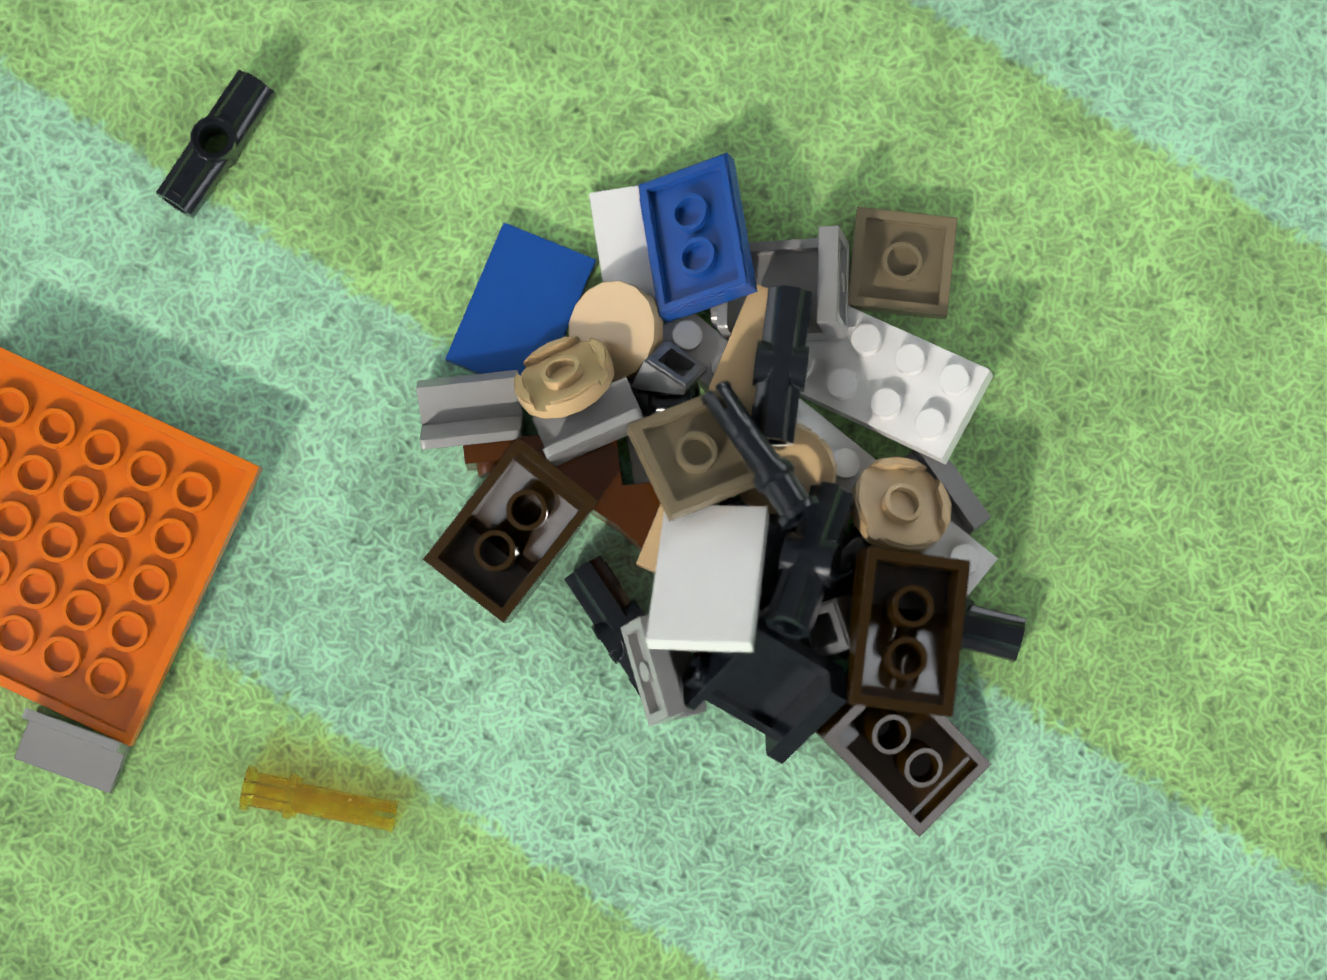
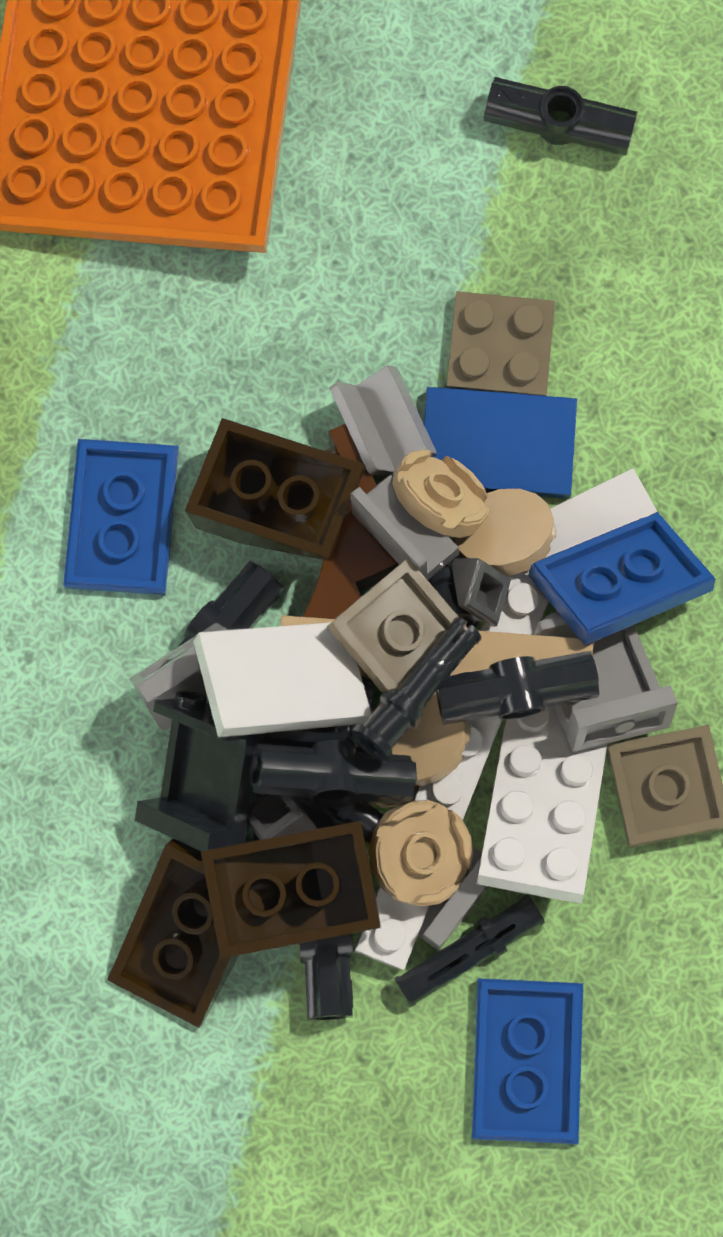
camera: 70 degrees right, 5 degrees down
(425, 276) = (500, 344): none -> dark tan plate
(476, 689) = (121, 517): none -> blue tile
(996, 493) = (474, 947): none -> black pin
(1112, 474) = (527, 1061): none -> blue tile

